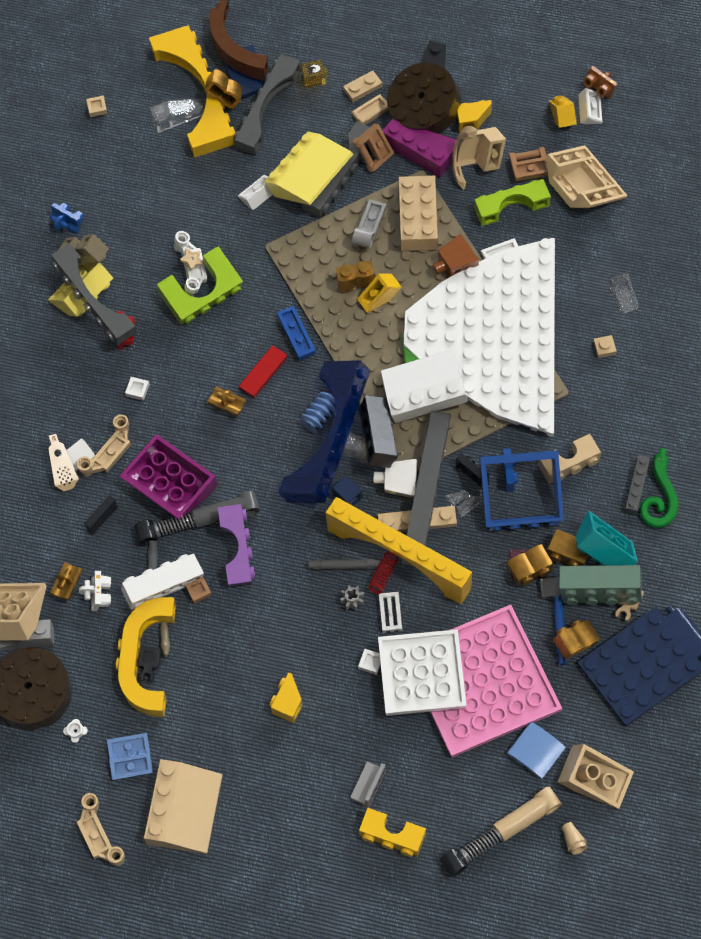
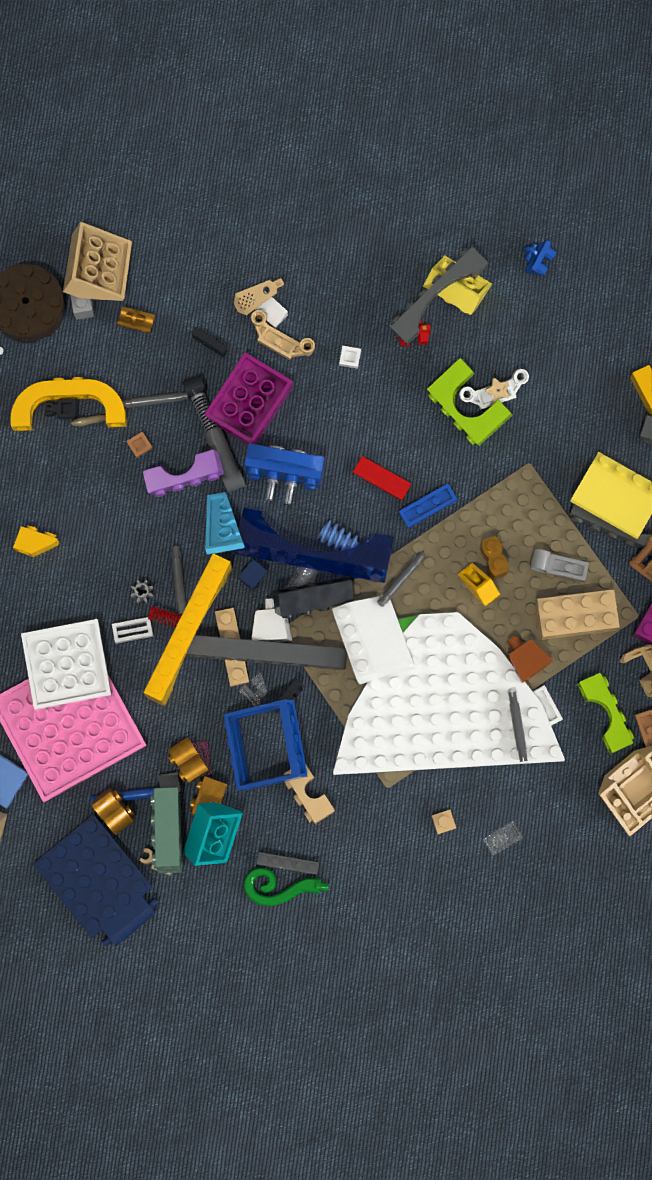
camera: 80 degrees right, 15 degrees up
(90, 248) = (493, 279): dark tan arch -> none
(97, 583) = (121, 352): white hips -> none
(161, 581) = (141, 408): white brick -> none
(226, 401) = (341, 446): pearl gold hips -> none
(240, 451) = (285, 465): none -> blue piece
(256, 193) = (590, 445): white slope -> none
(295, 509) = (221, 526): none -> medium azure wing
(367, 357) = (400, 579): none -> dark grey piece
(370, 662) = (78, 614): white plate -> none
(510, 477) = (279, 734): blue plate -> none
(520, 269) = (517, 726): none -> dark grey piece

